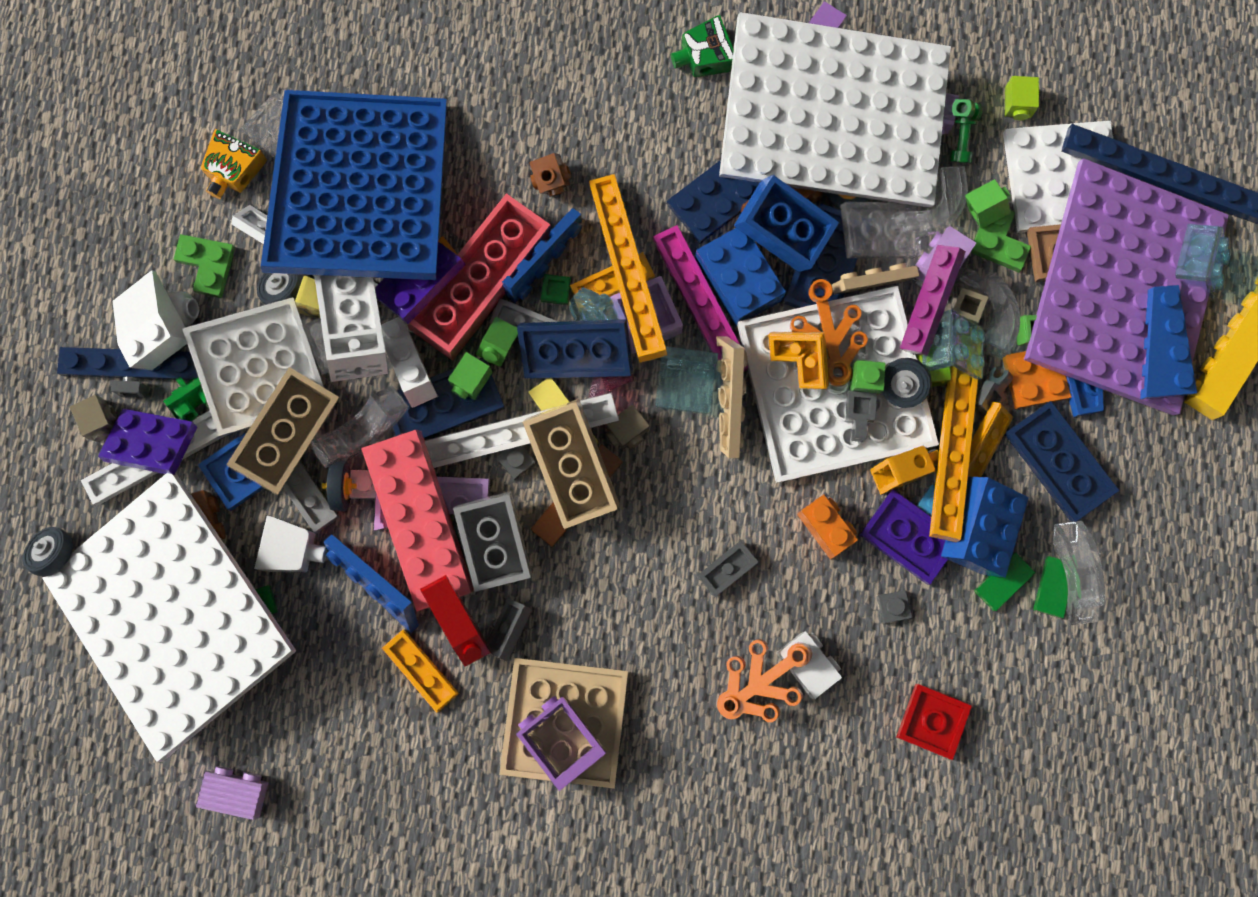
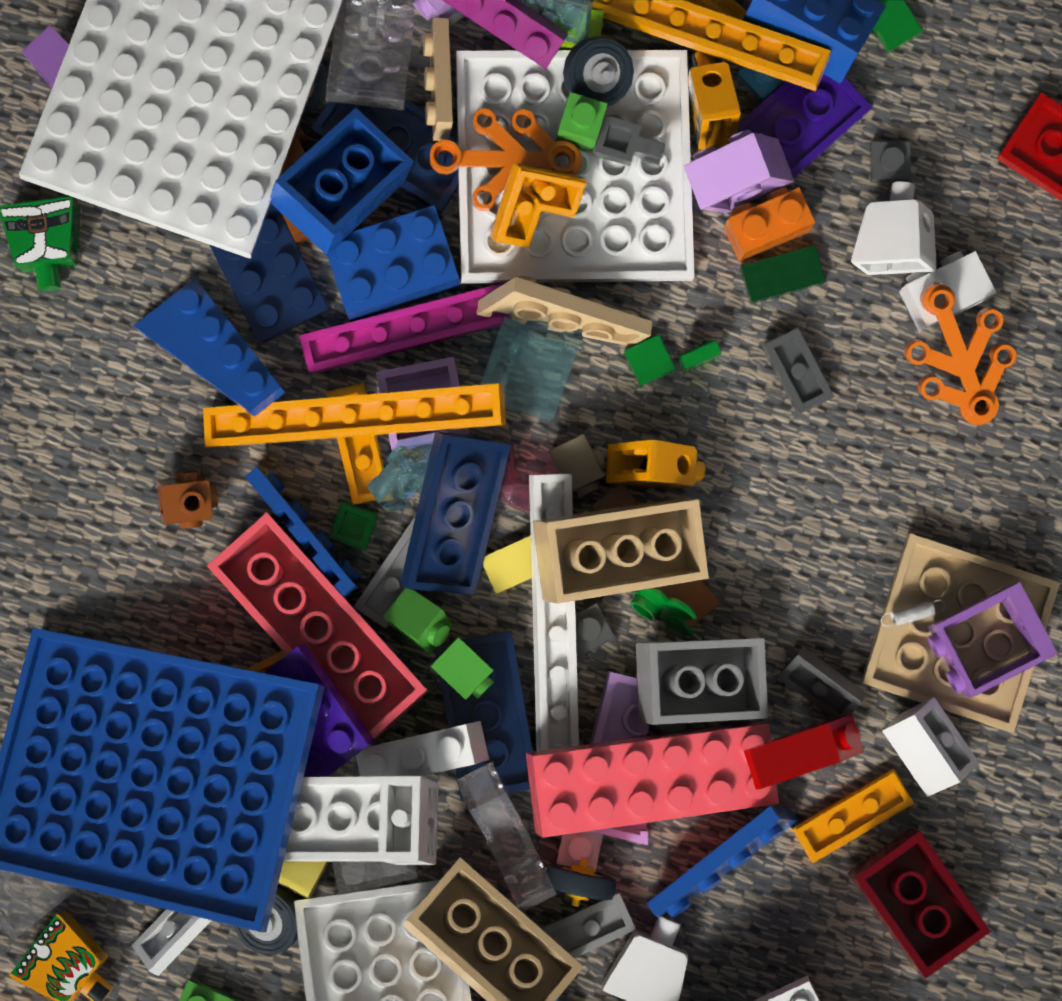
camera: 80 degrees left, 5 degrees up
(364, 727) = (919, 902): none -> dark red brick
(477, 715) = (931, 747): none -> white brick
(541, 500) = (654, 603): none -> green plate
(570, 683) = (913, 613): none -> white piece
(638, 480) = (667, 464): none -> light orange torso
(657, 168) = (207, 343): none -> blue wing
(712, 464) = (649, 360): none -> green tile
(722, 497) = (699, 356): none -> green tile
(794, 545) = (782, 274): none -> dark green tile
(840, 618) = (896, 235): none -> white torso
(858, 494) = (738, 172): none -> lavender brick

